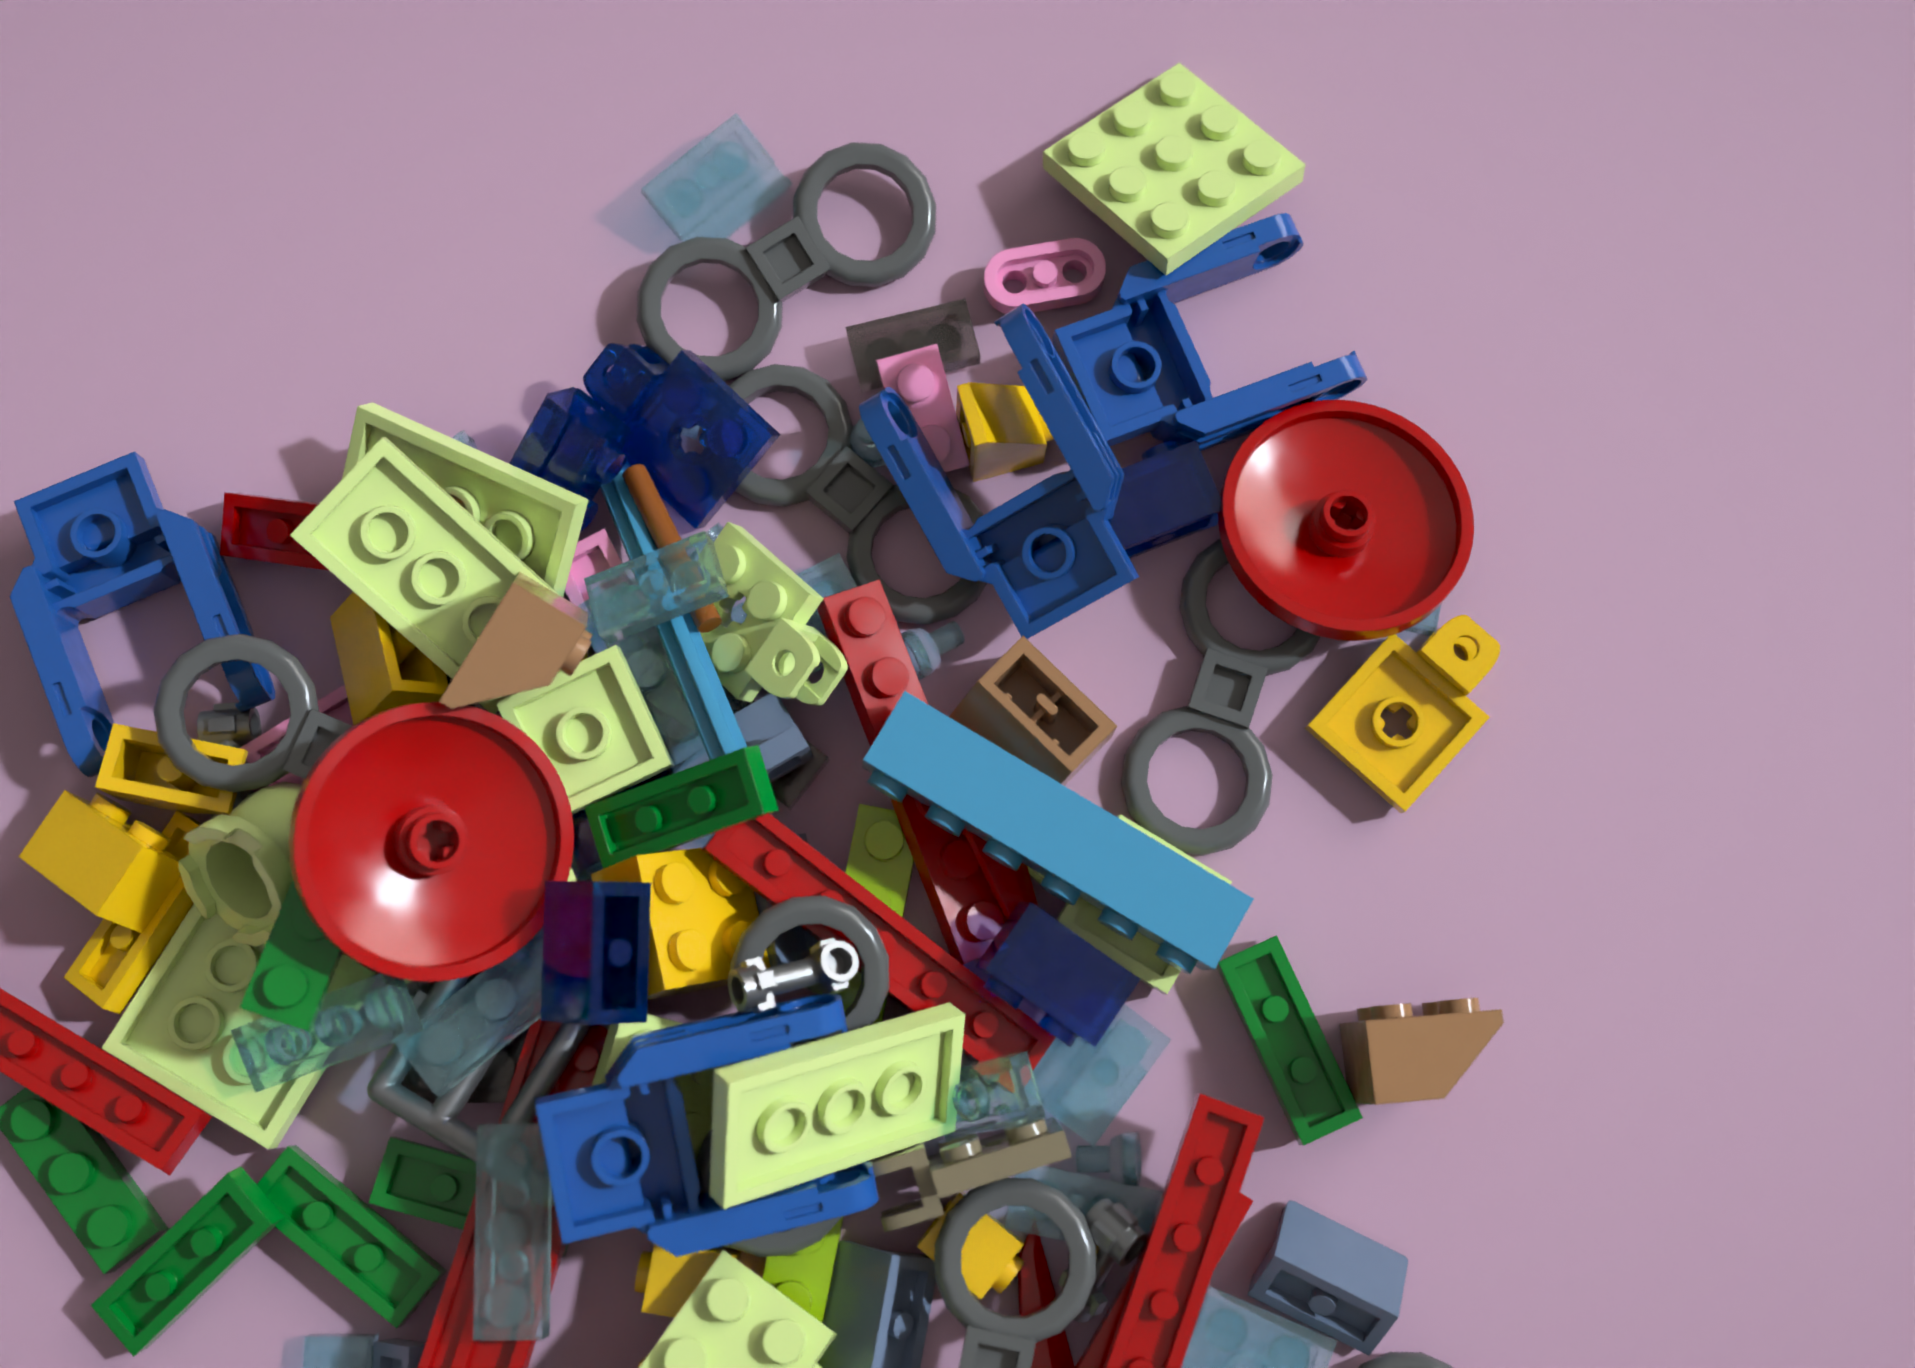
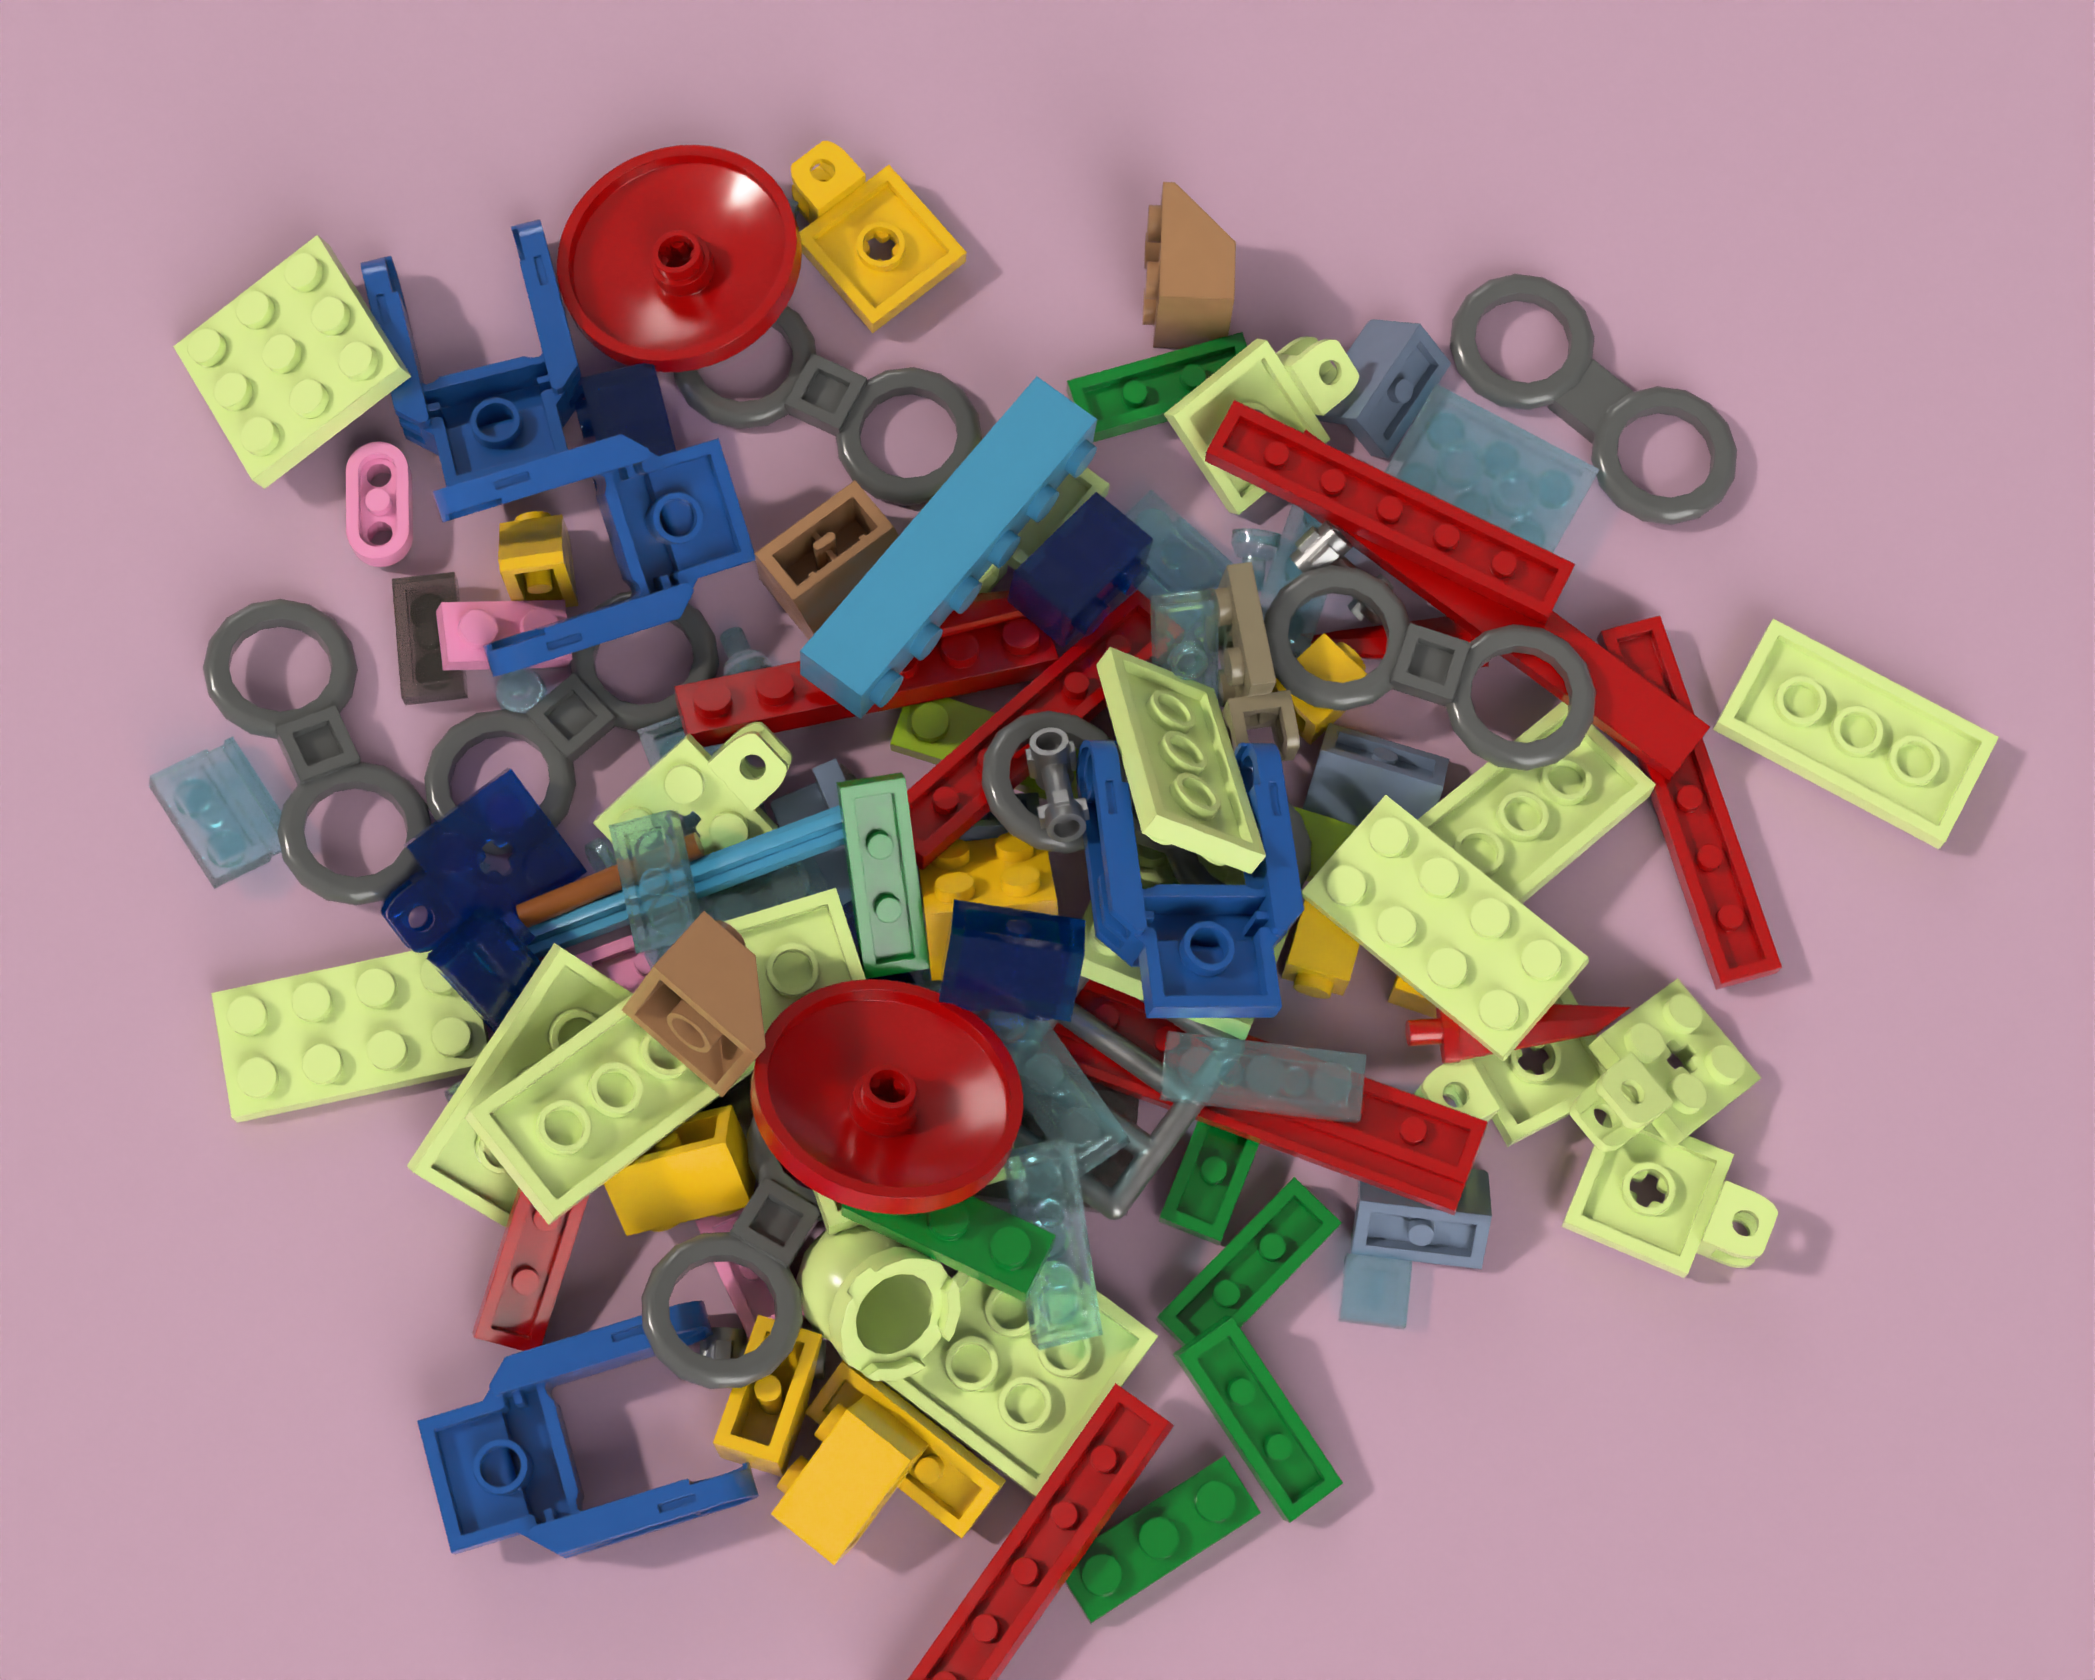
camera: 85 degrees left, 5 degrees down
(510, 322) = (342, 1034): none -> yellowish green plate
(1300, 1158) = (1282, 385): none -> yellowish green plate

